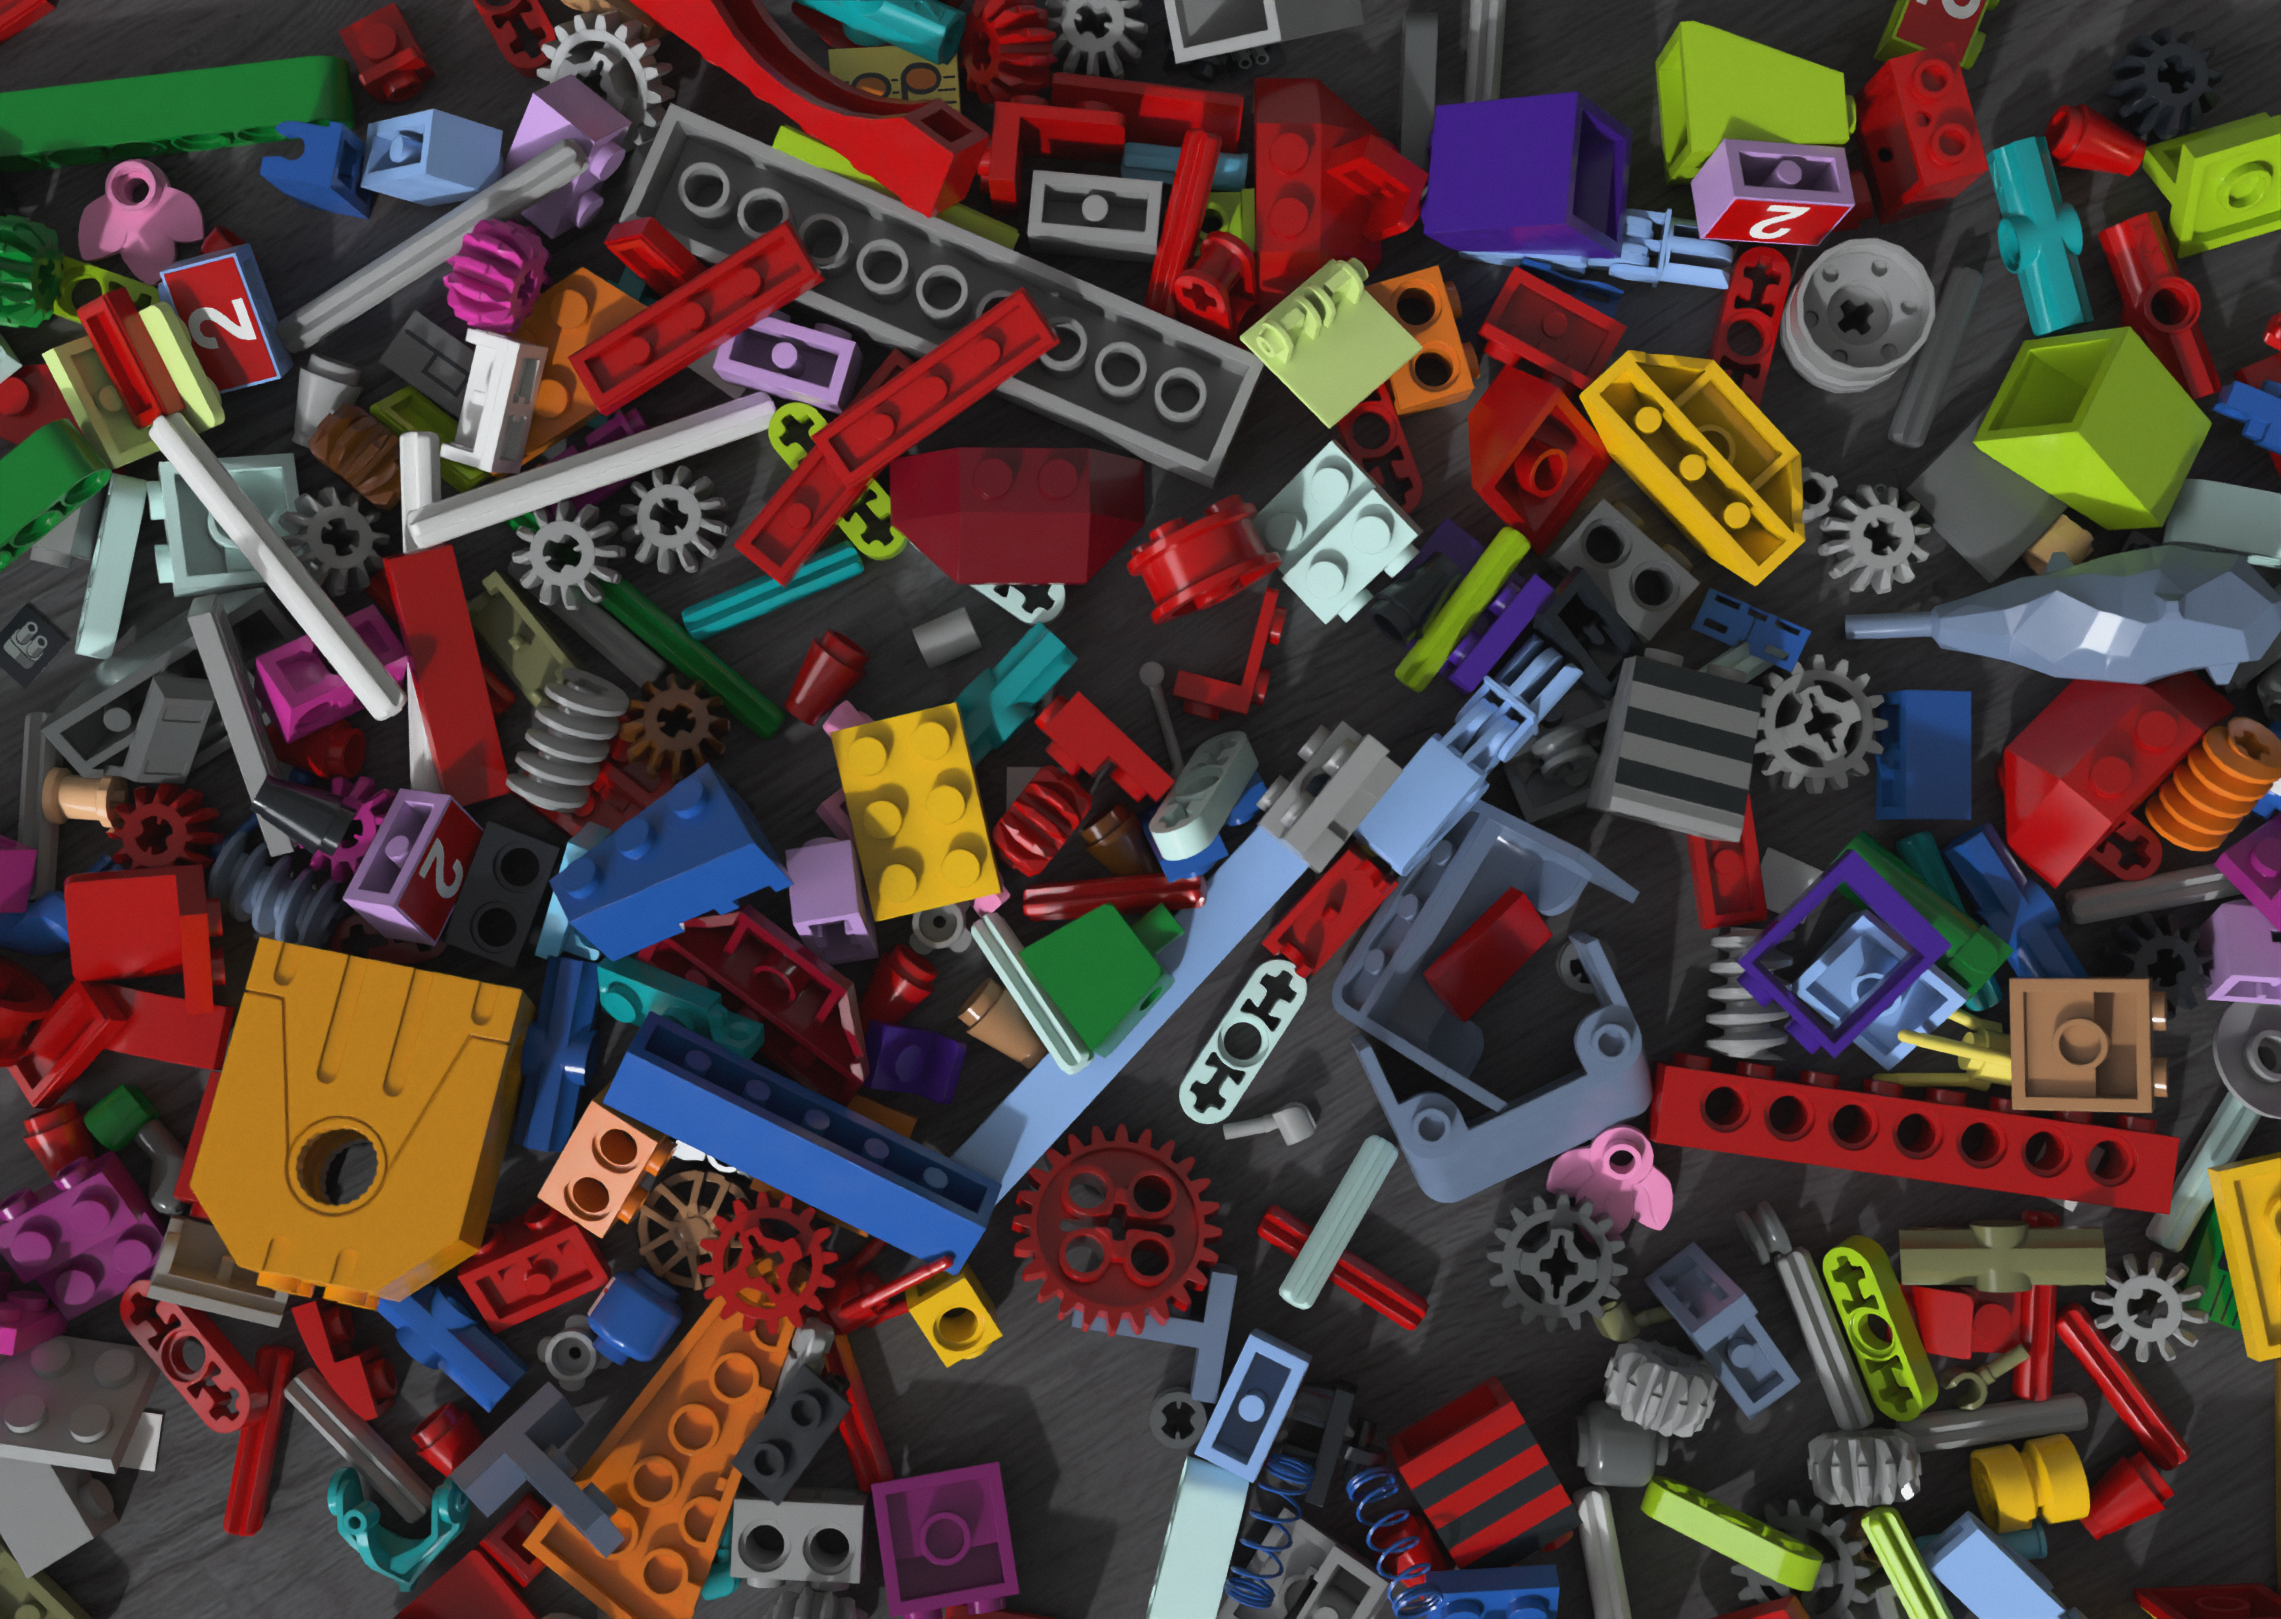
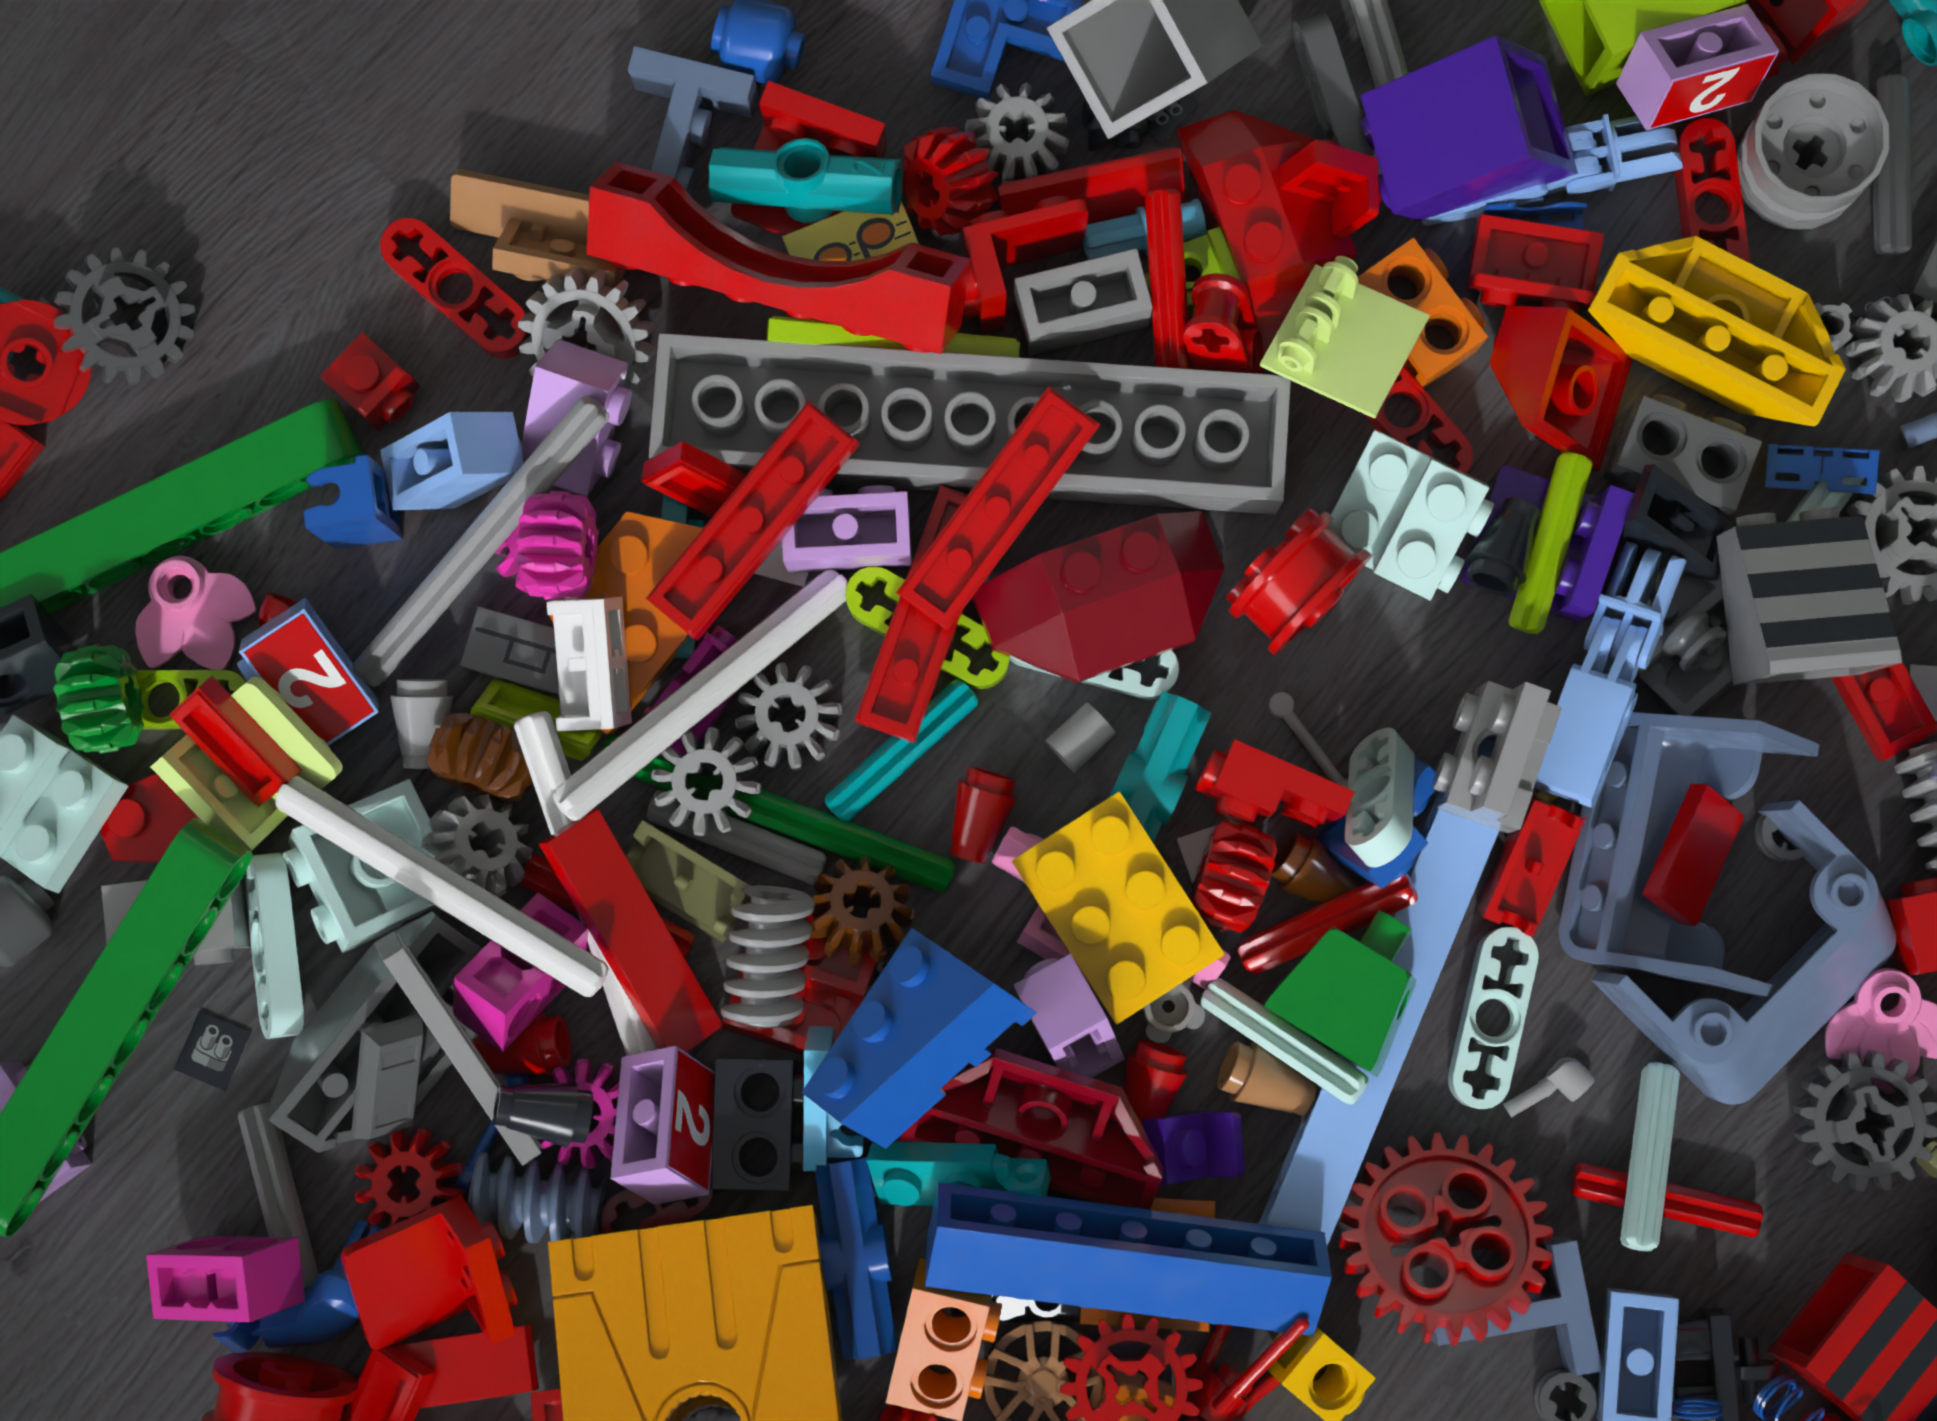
camera: 20 degrees left, 5 degrees down
(77, 797) = (319, 1174): light nougat bush -> none
(1209, 697) = (1344, 706): red bracket -> none

